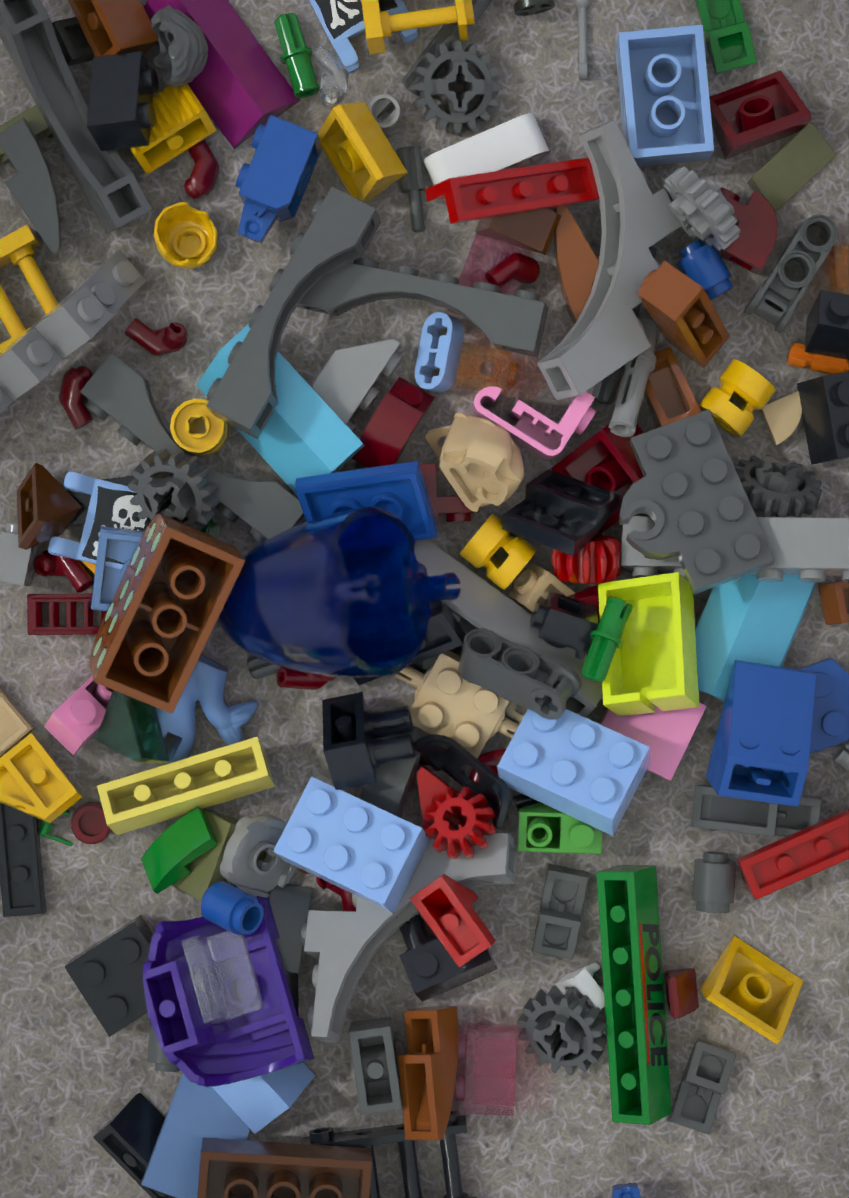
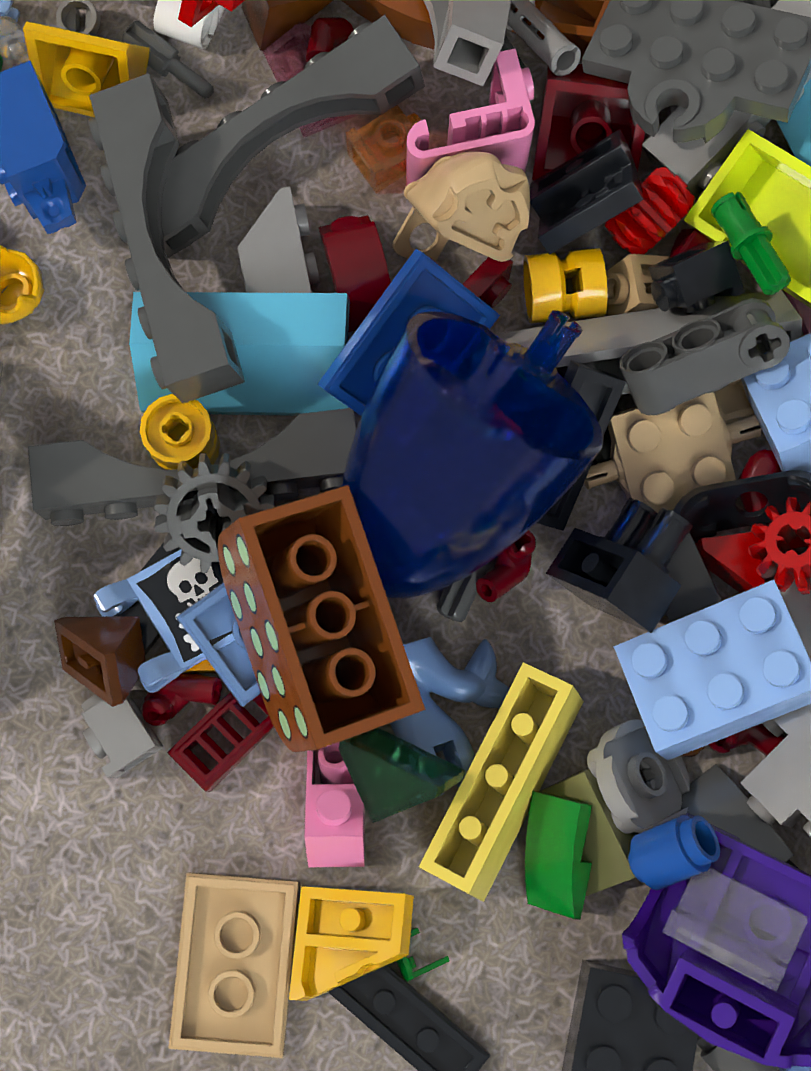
camera: 45 degrees left, 10 degrees down
(71, 397) = (31, 530): dark red arm -> none
(90, 823) = (447, 916): dark red tile -> none
(158, 341) = (67, 404): dark red arm -> none
(439, 352) = (327, 175): light blue beam -> none

